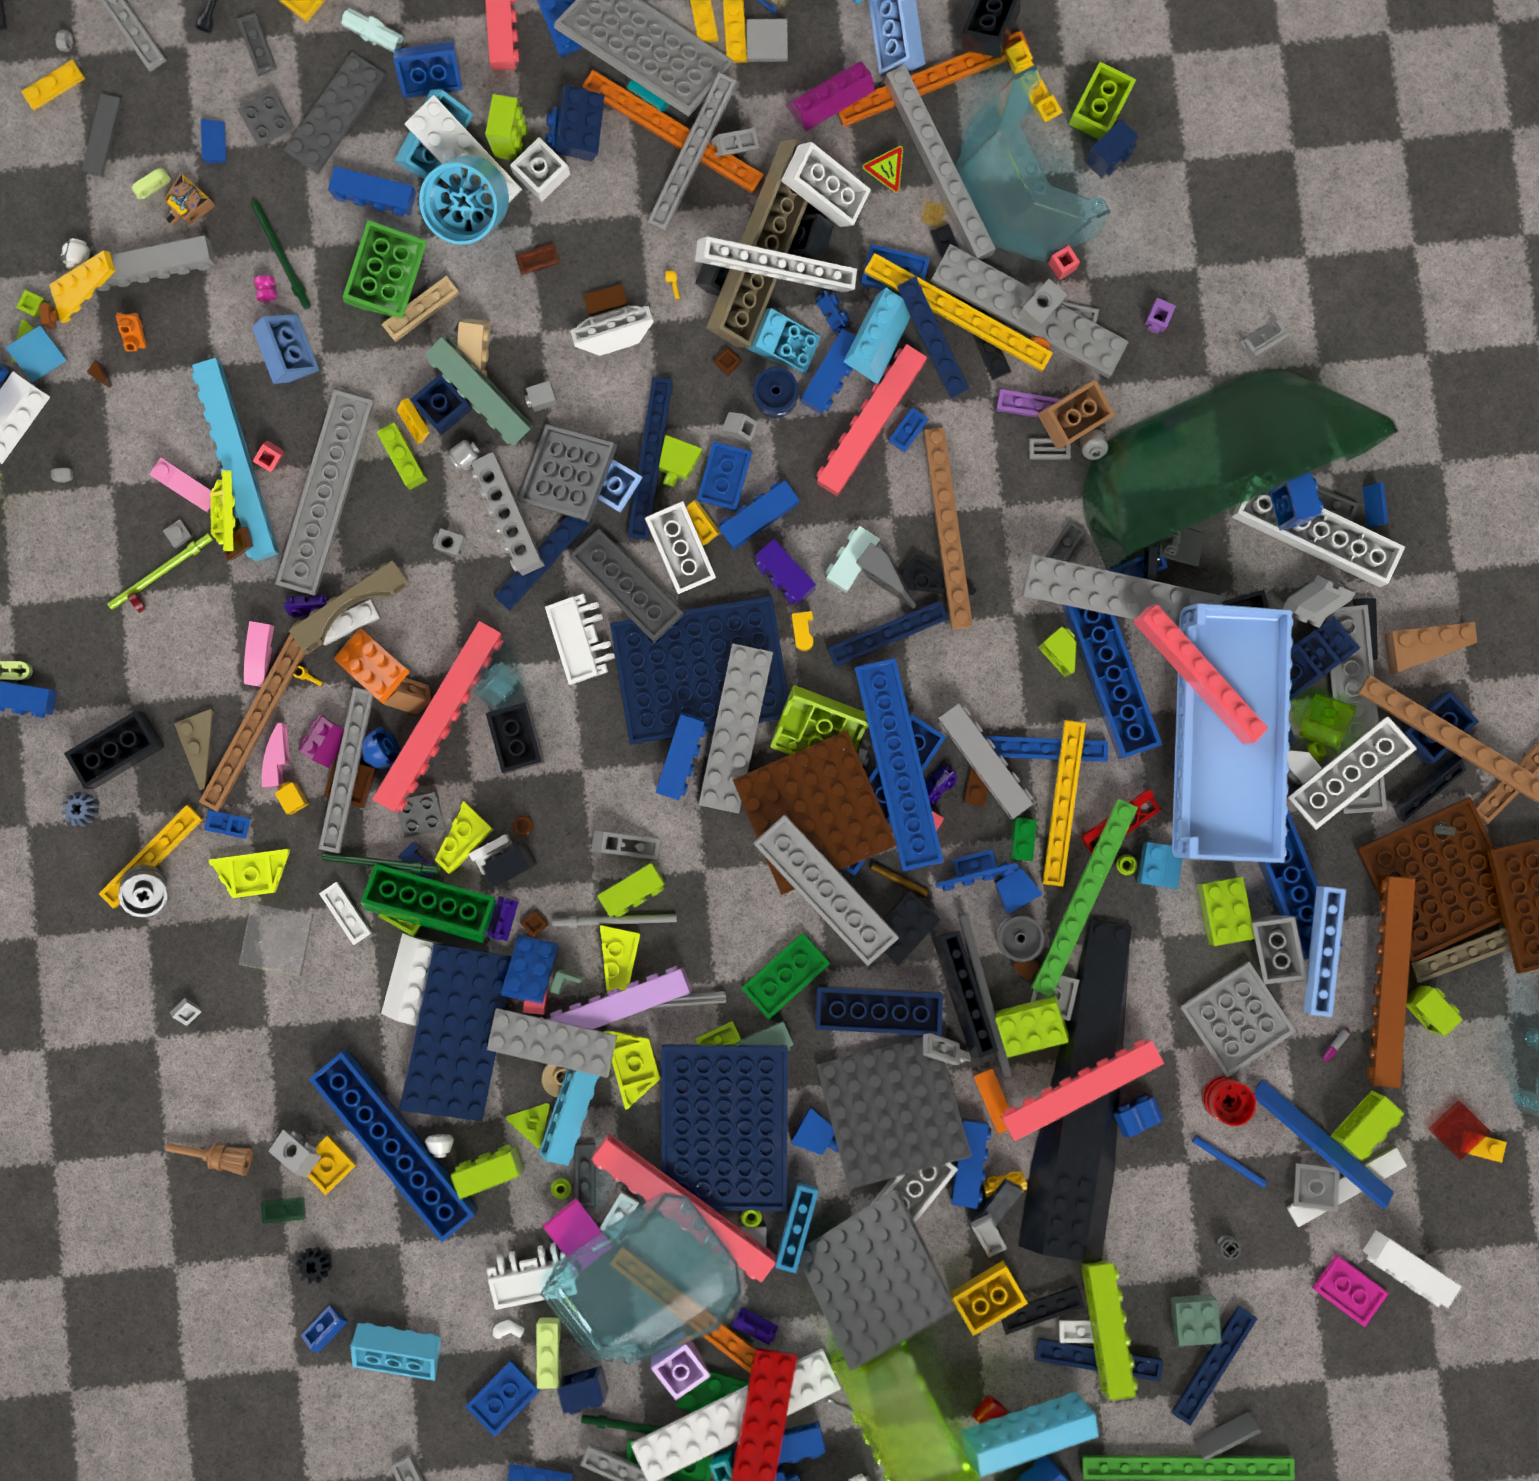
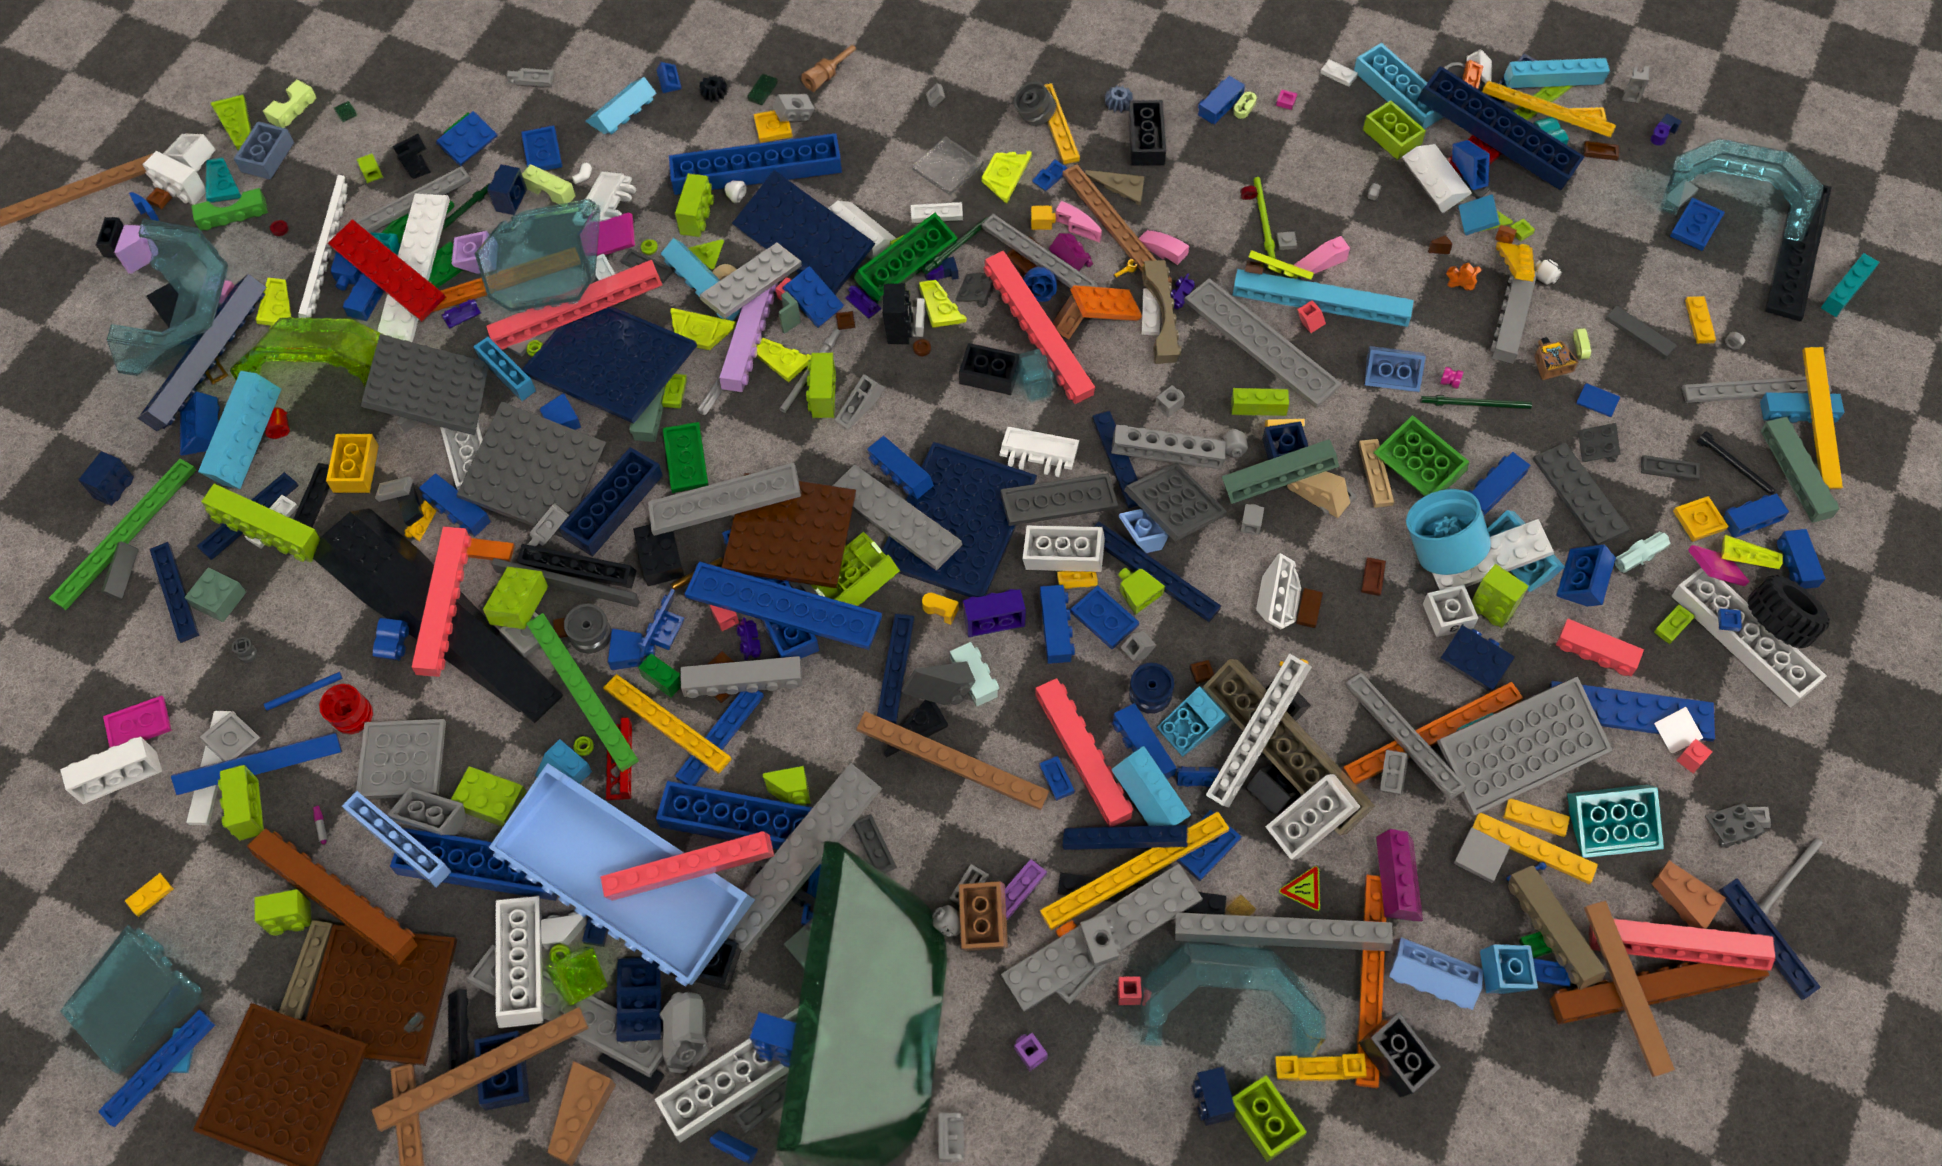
camera: 120 degrees right, 25 degrees down
(1459, 1130) = (176, 880): clear red plate -> none

